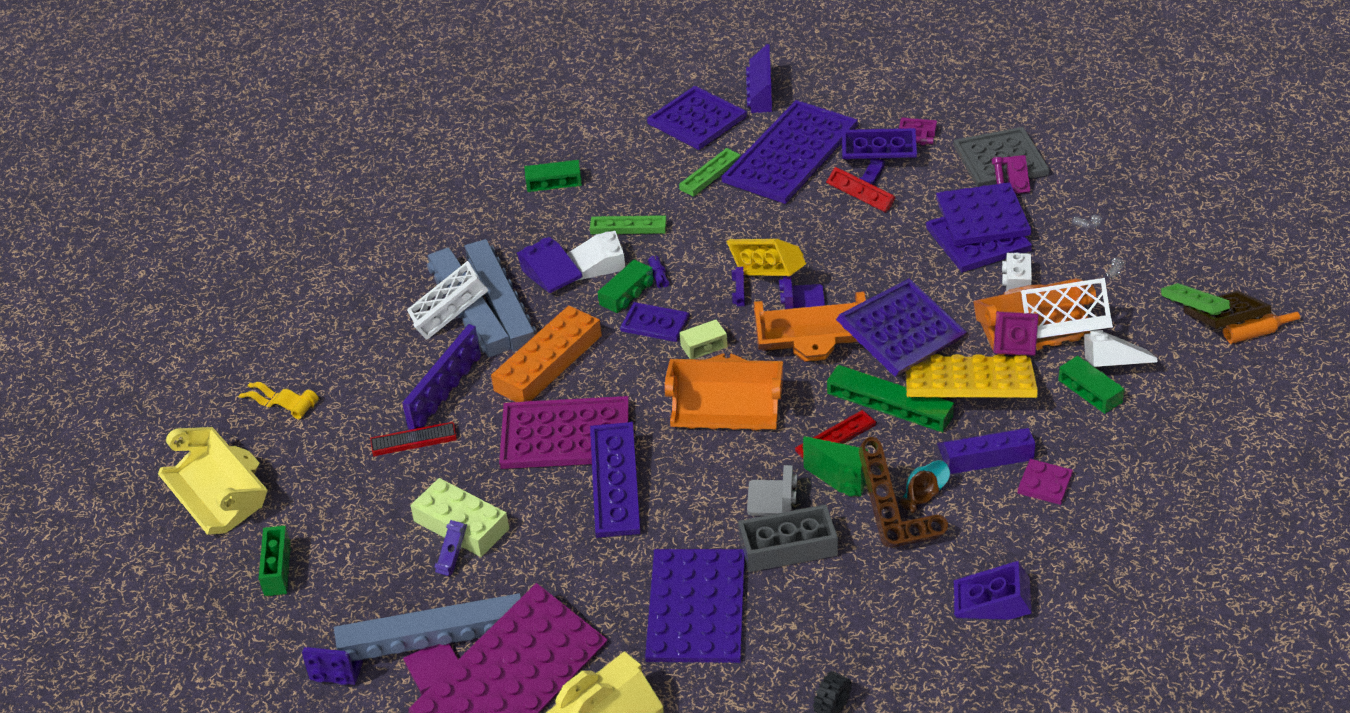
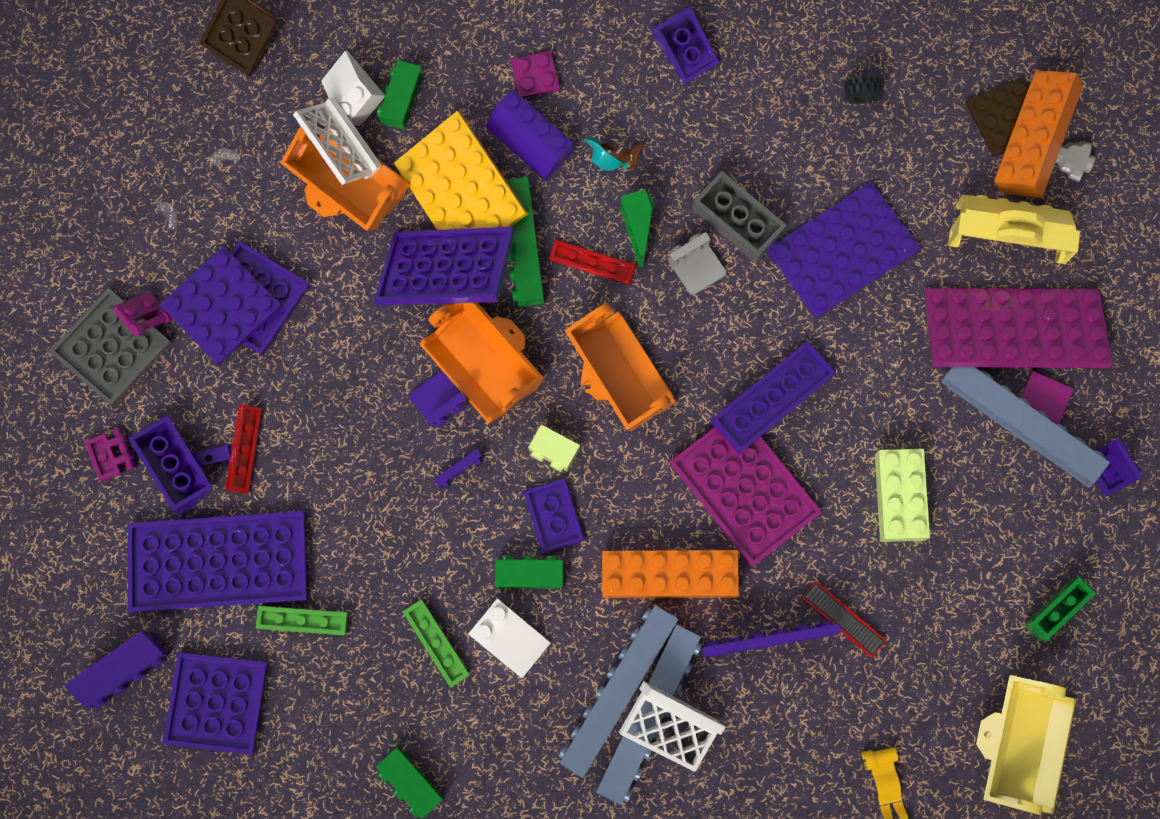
camera: 125 degrees left, 35 degrees up
(447, 558) = (941, 470): dark purple piece -> none
(548, 265) = (552, 667): dark purple slope -> none
(659, 271) = (485, 561): dark purple pin -> none
(766, 256) = (422, 448): yellow slope -> none
(889, 502) = (671, 147): reddish brown beam -> none
(1015, 333) = (390, 170): magenta tile -> none
(1017, 270) = (287, 231): white brick -> none
(1195, 298) = (242, 60): bright green plate -> none

